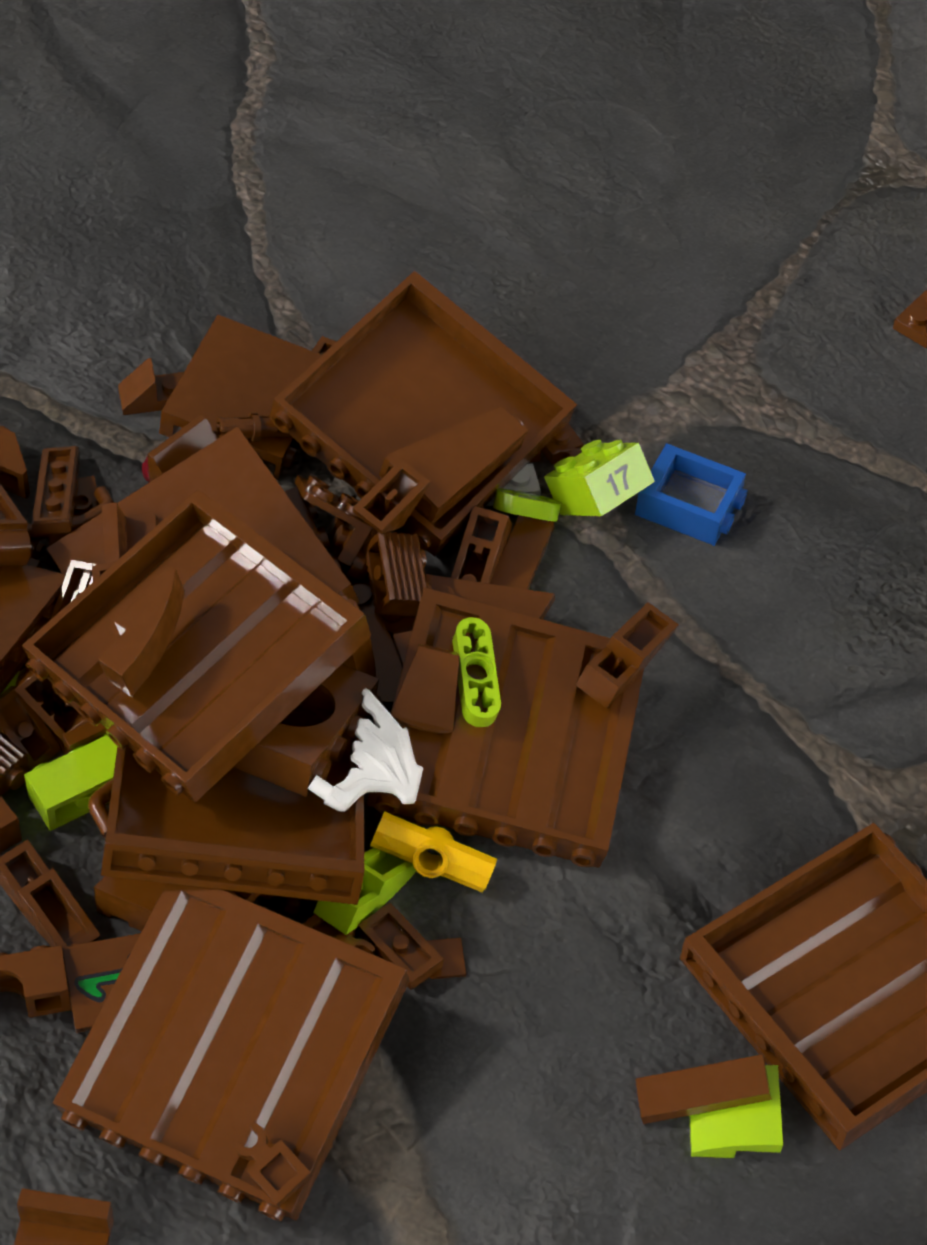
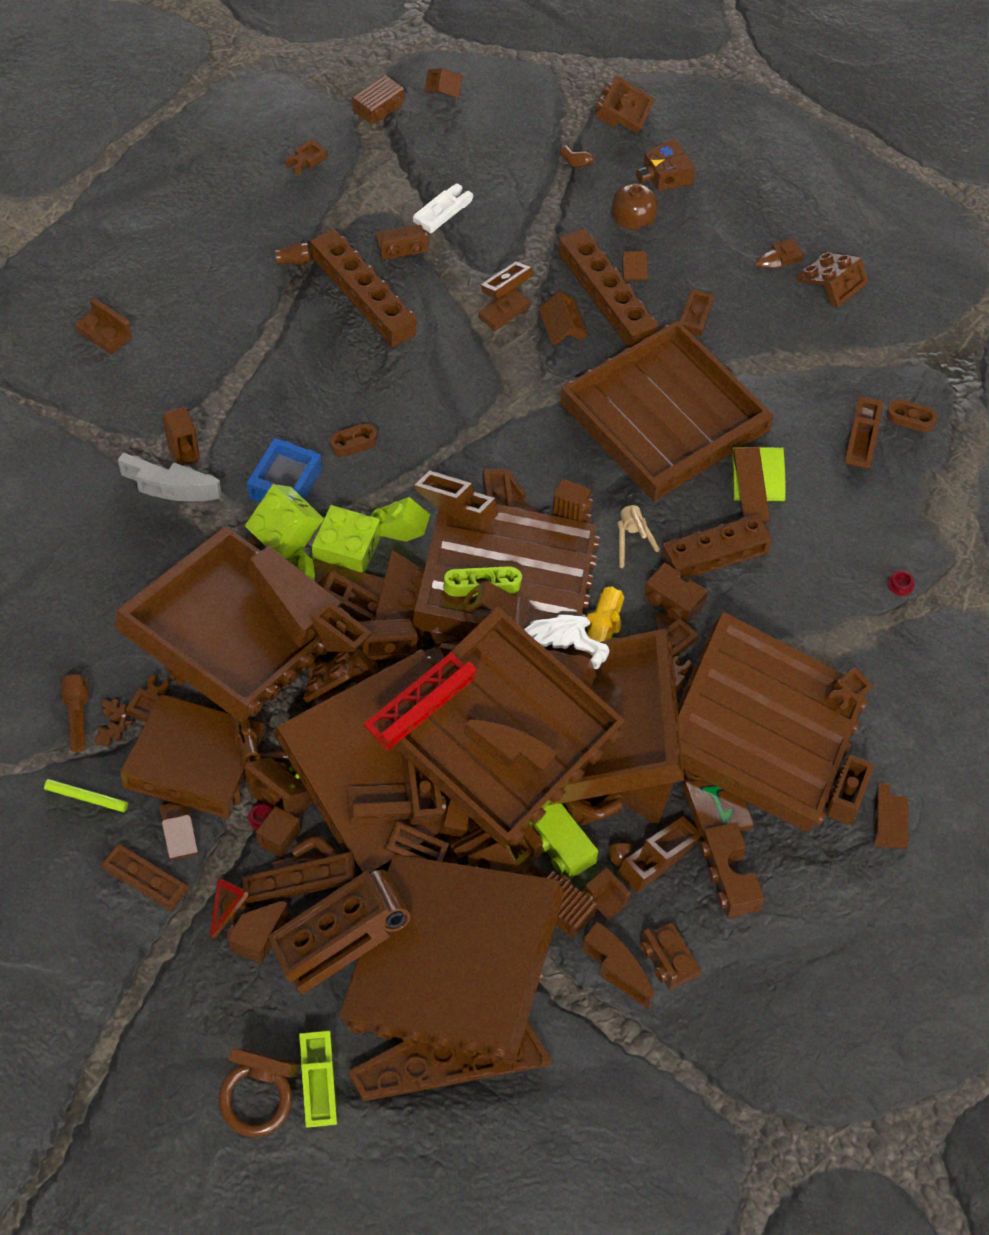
camera: 90 degrees left, 5 degrees up
(37, 433) = (227, 901): none -> piece
(52, 851) = (619, 852): none -> reddish brown hinge
(95, 364) = (145, 877): none -> reddish brown tile
(107, 1162) = (850, 790): none -> reddish brown brick
(126, 474) = (278, 832): none -> reddish brown panel
(213, 308) = (86, 795): none -> lime bar
(214, 533) = (424, 706): none -> red fence
(298, 334) = (115, 731): none -> reddish brown animal
(343, 293) = (75, 695): none -> reddish brown piece
(493, 950) = (675, 595): none -> reddish brown brick
(579, 556) = (347, 539): none -> lime brick
(579, 1027) = (717, 547): none -> reddish brown brick
(615, 610) = (402, 520): none -> lime slope
(630, 914) = (633, 522): none -> tan plant
(639, 818) = (573, 501): none -> reddish brown brick
(672, 750) = (502, 486): none -> reddish brown wing
(677, 376) = (177, 483): none -> light grey slope
(739, 377) = (181, 436): none -> reddish brown brick
(770, 575) = (353, 439): none -> reddish brown beam

